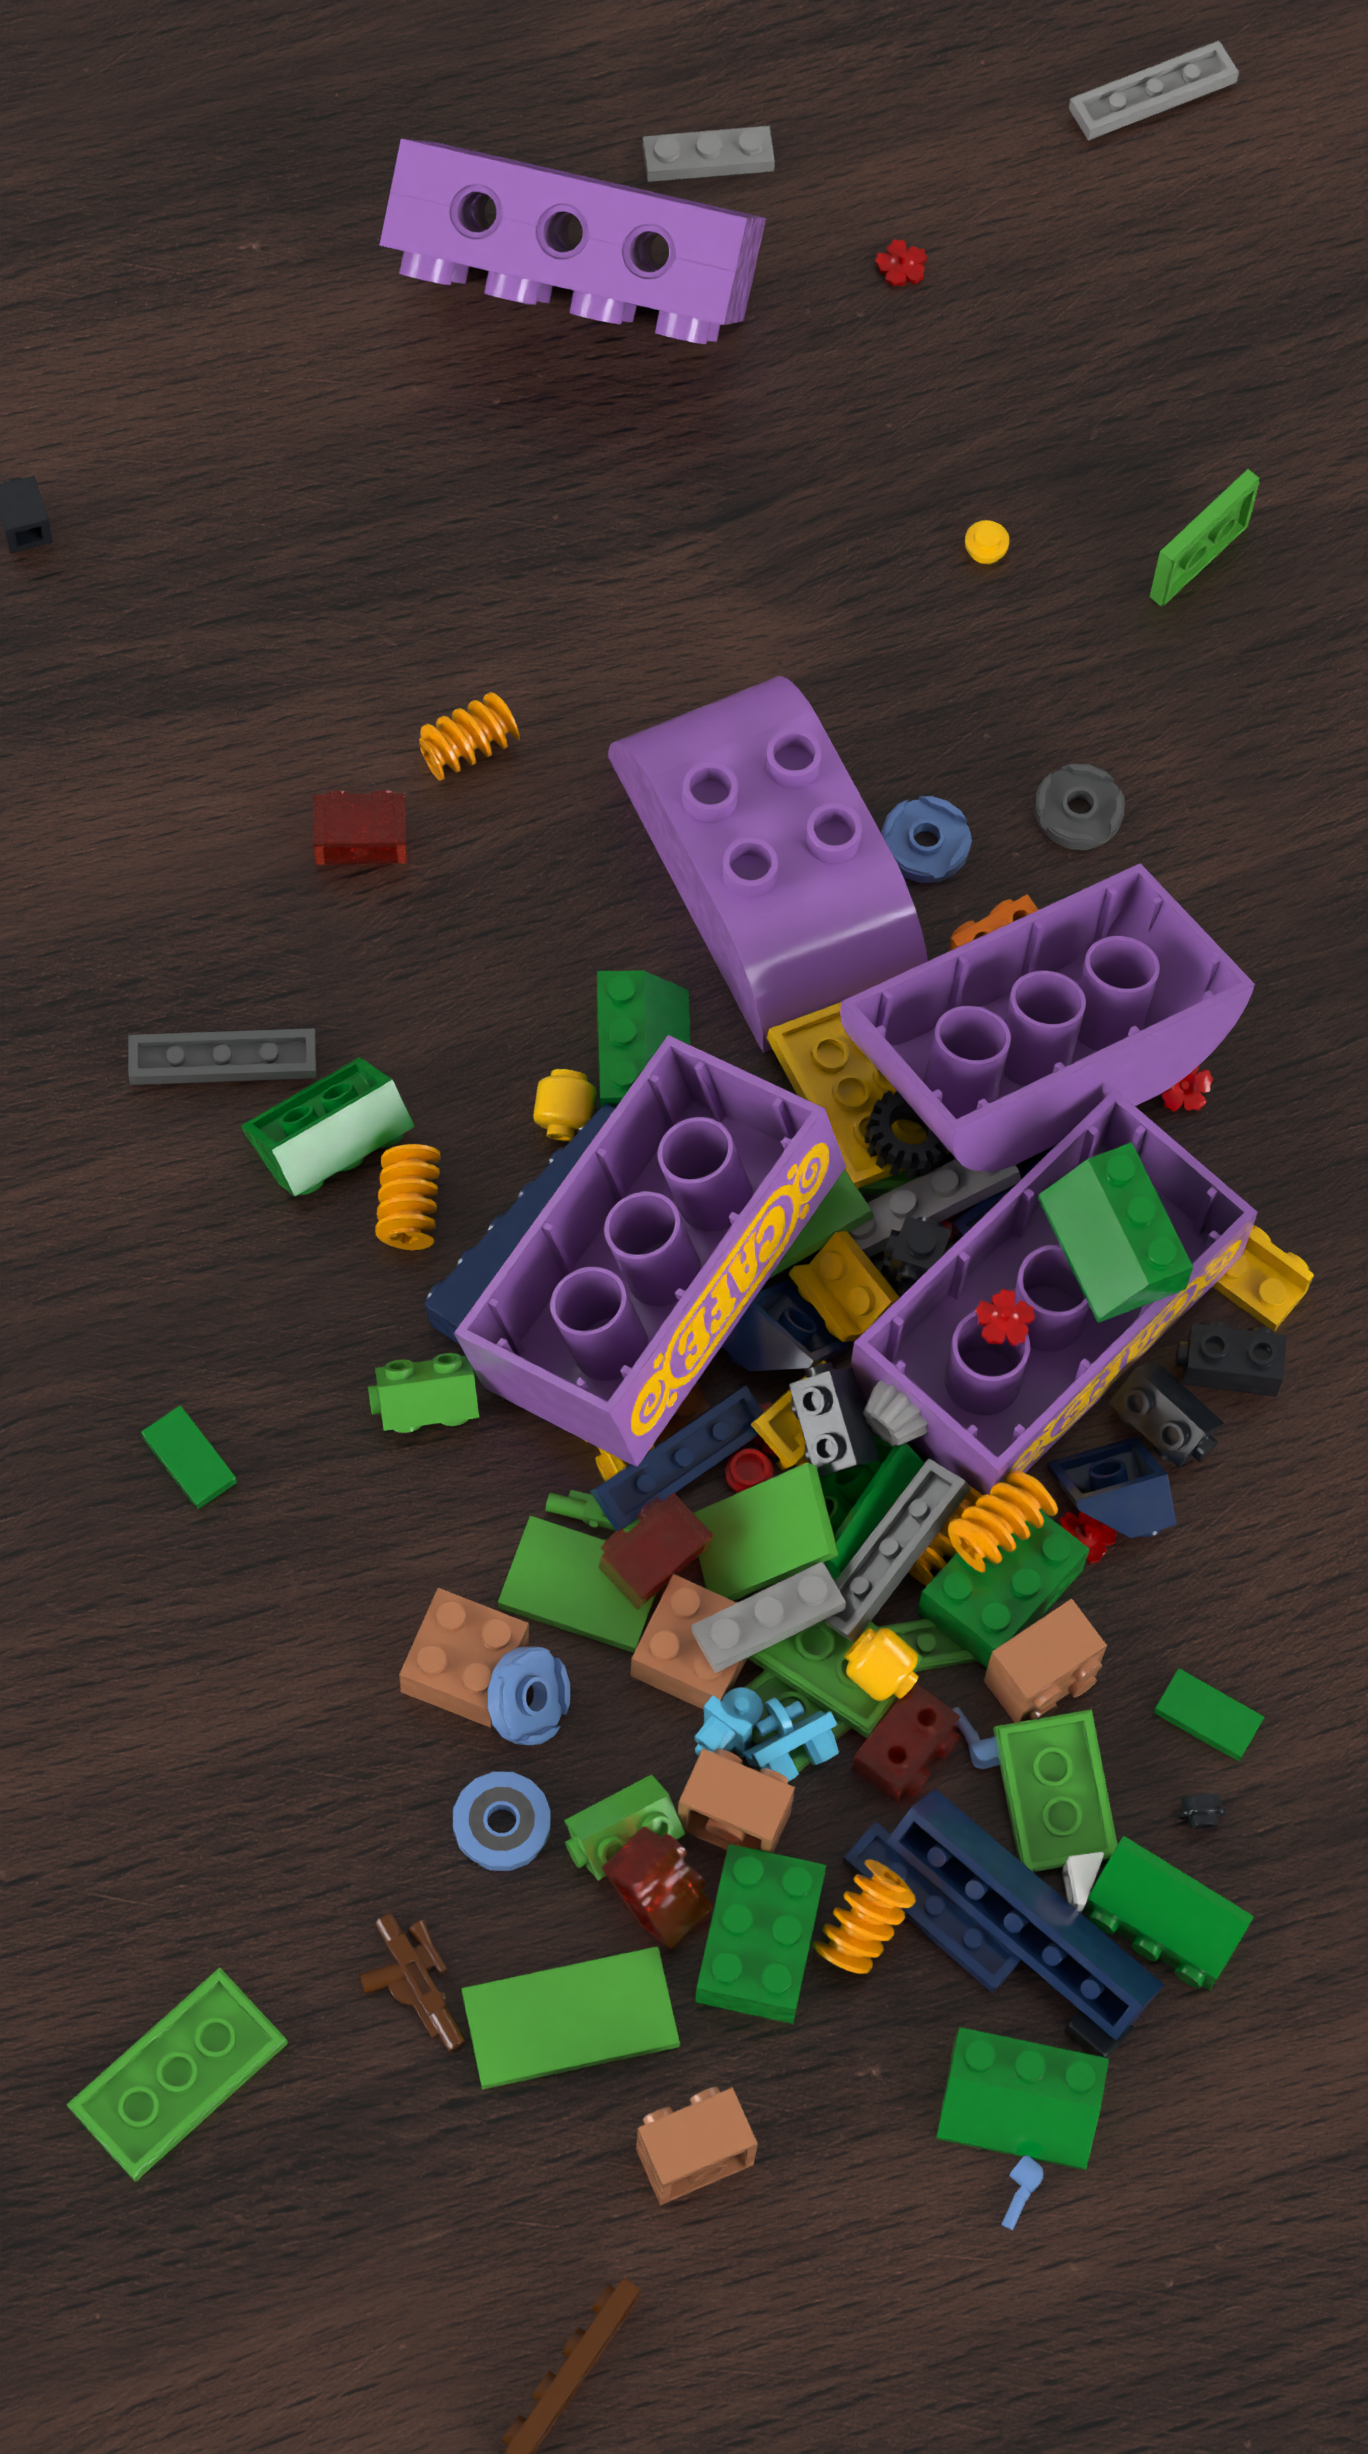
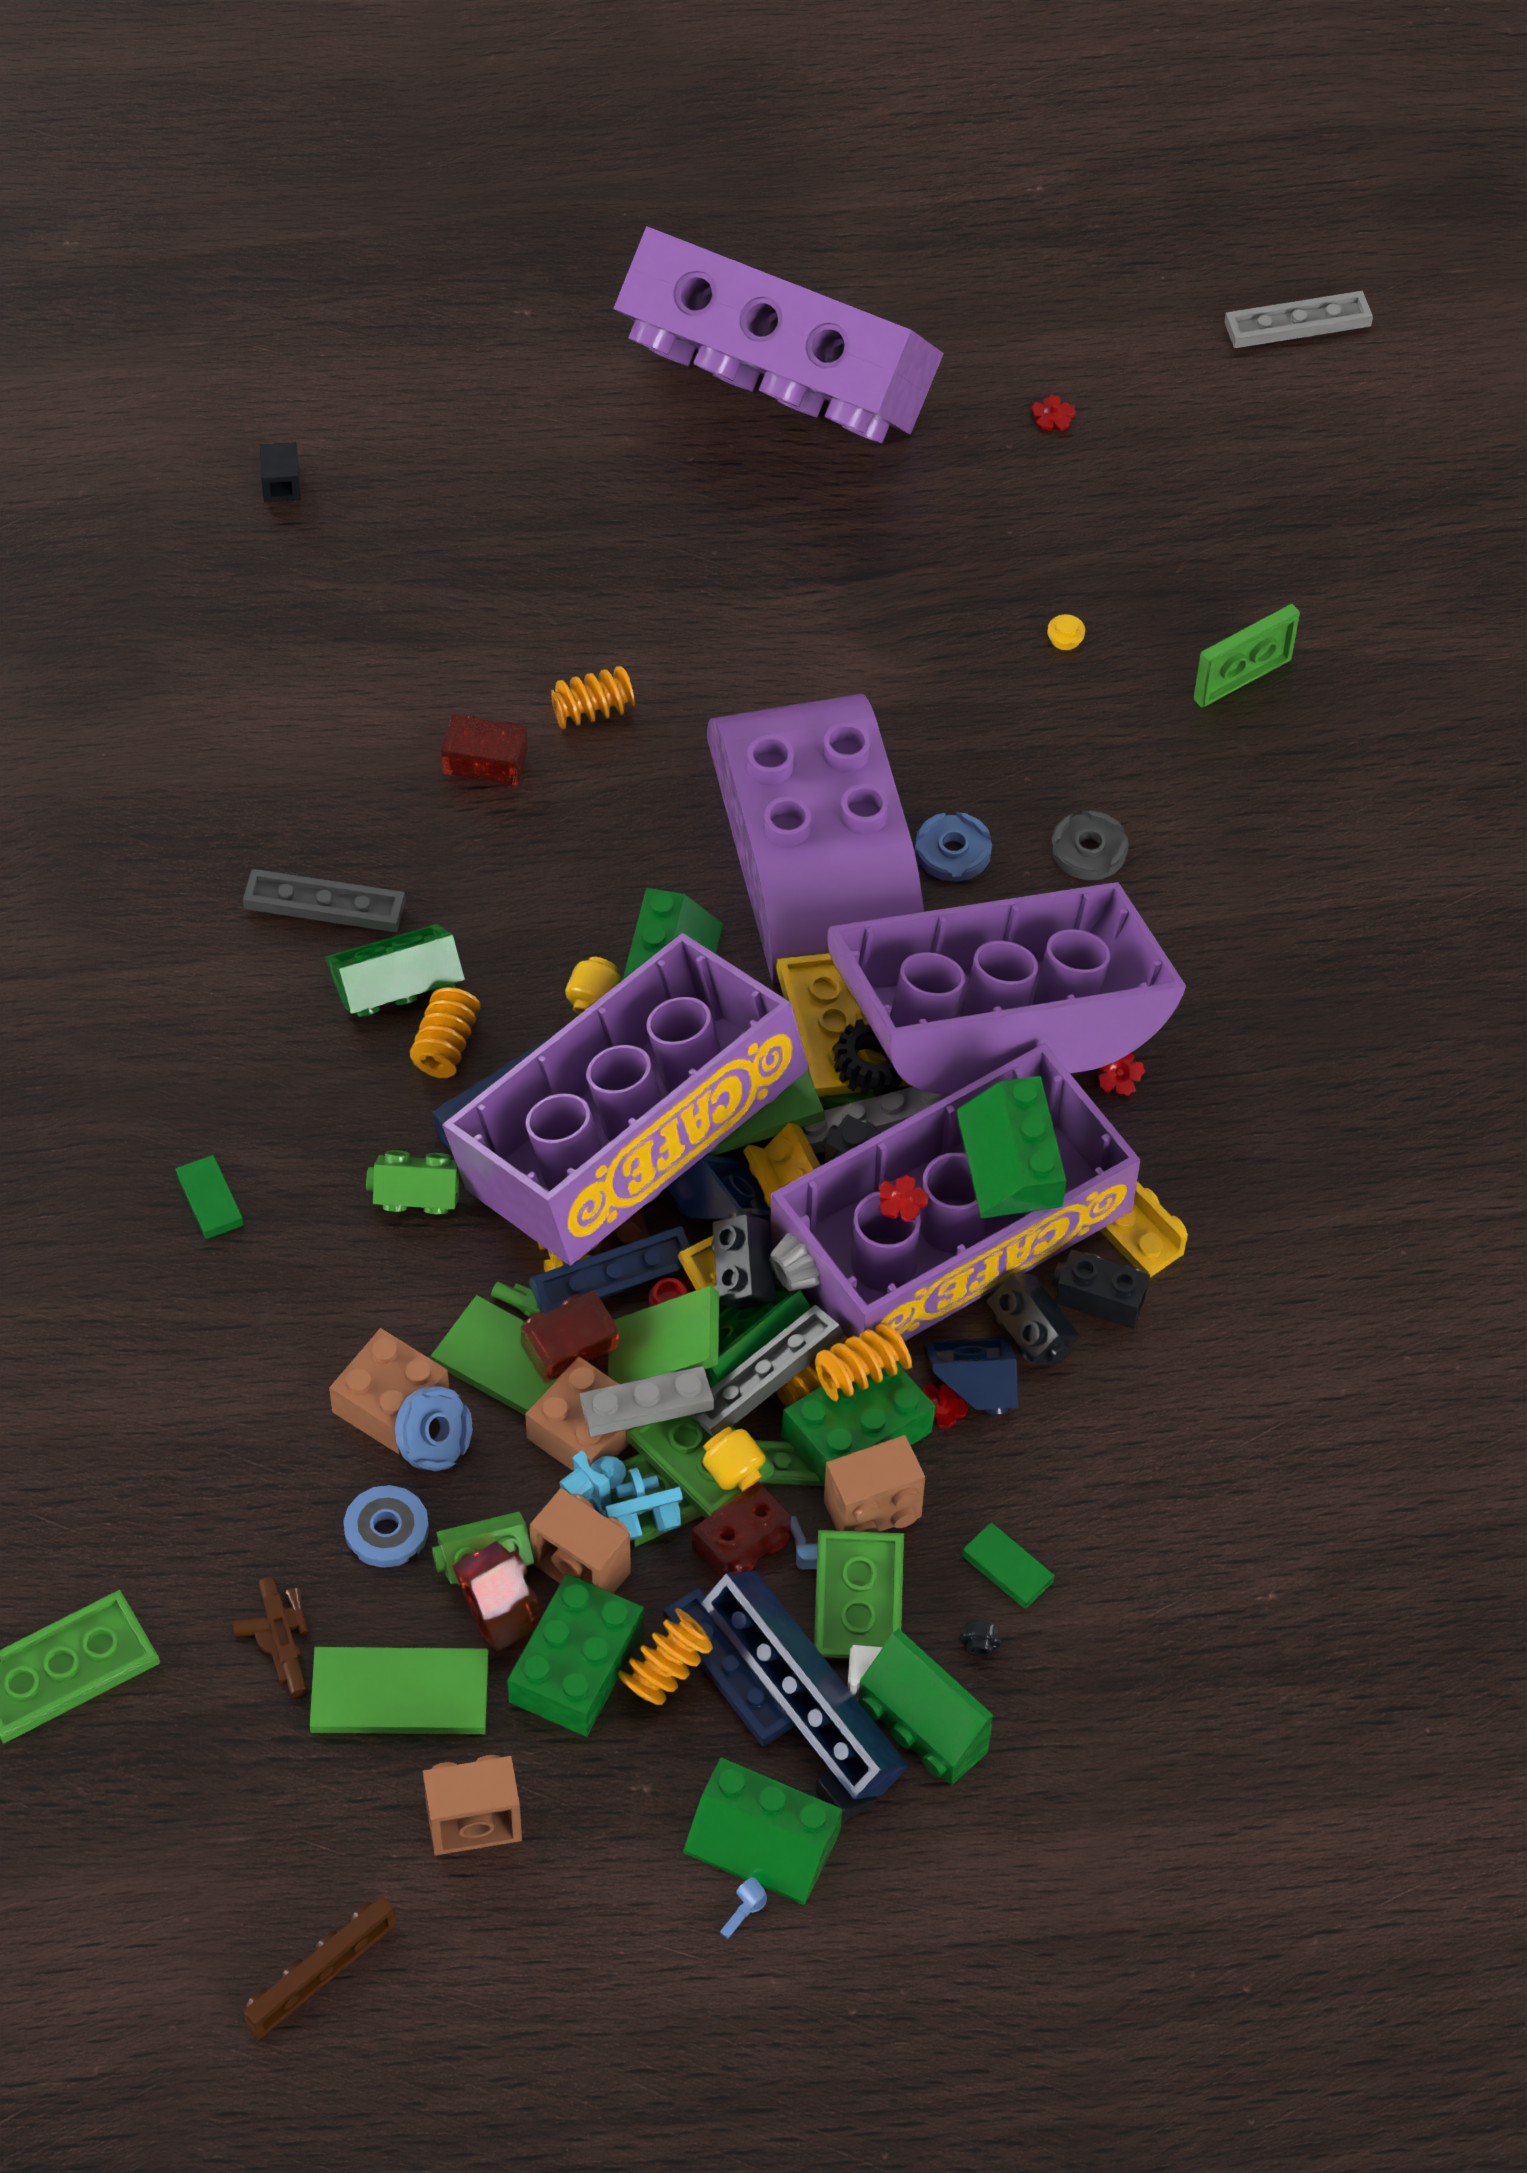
camera: 15 degrees right, 10 degrees down
(708, 153) = (917, 305): light grey plate -> none

